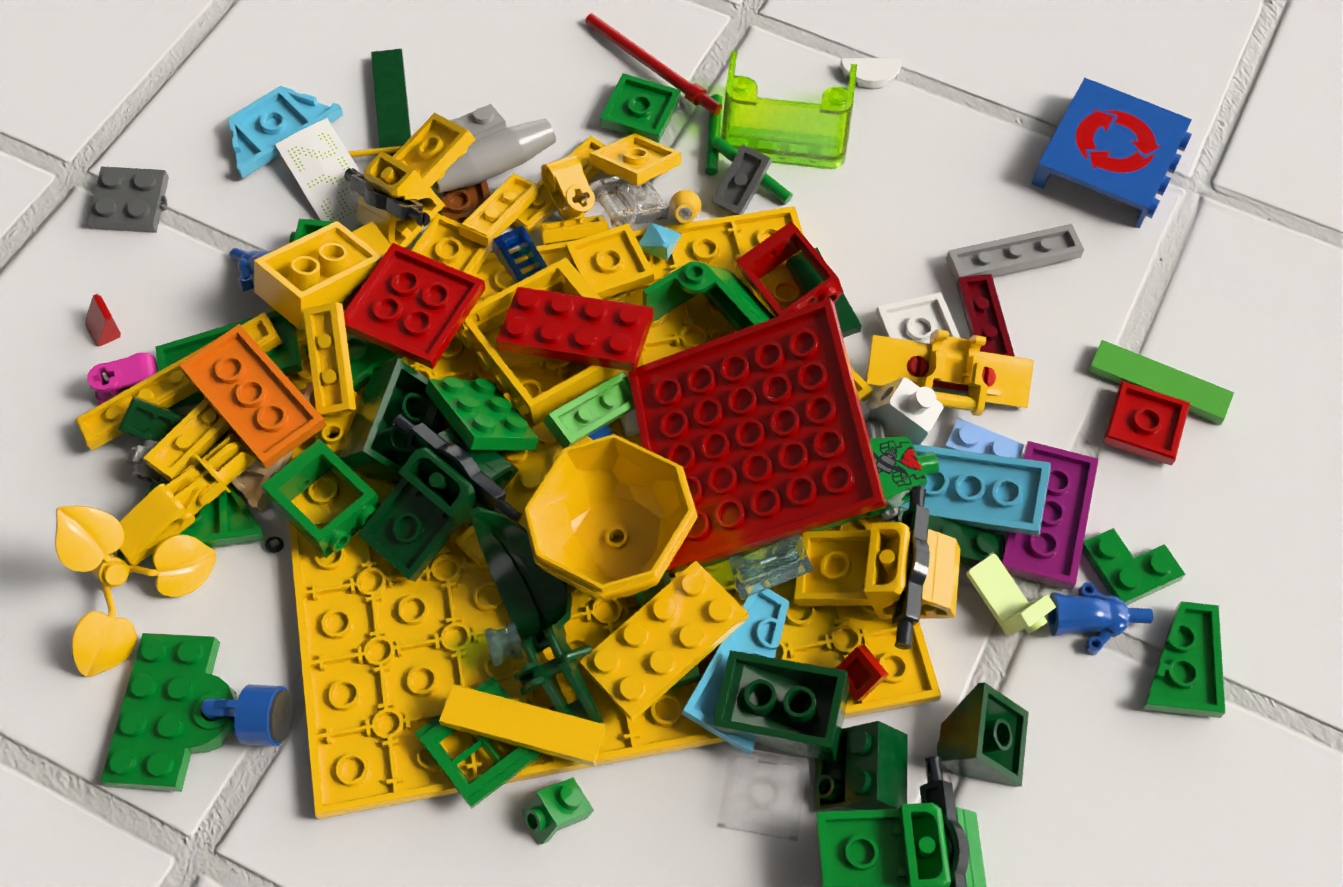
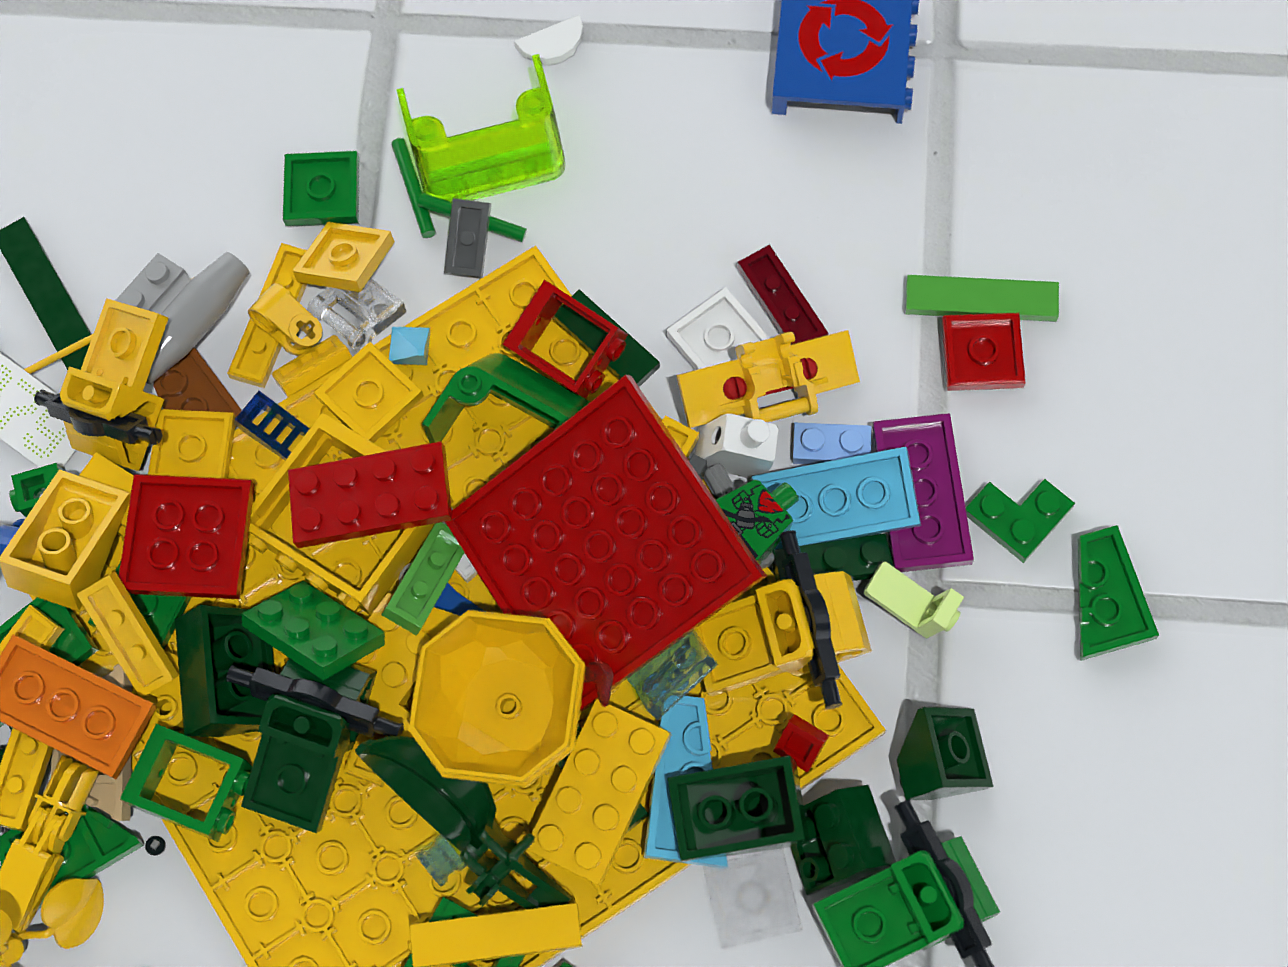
camera: 15 degrees left, 10 degrees up
(500, 210) = (224, 378): yellow tile -> none
(687, 199) = (420, 293): yellow cone -> none
(693, 92) = (372, 147): red bar -> none
(709, 542) = (603, 676): none -> clear red animal
(1016, 253) = (785, 208): light grey plate -> none
(1093, 613) = (1011, 579): blue piece -> none

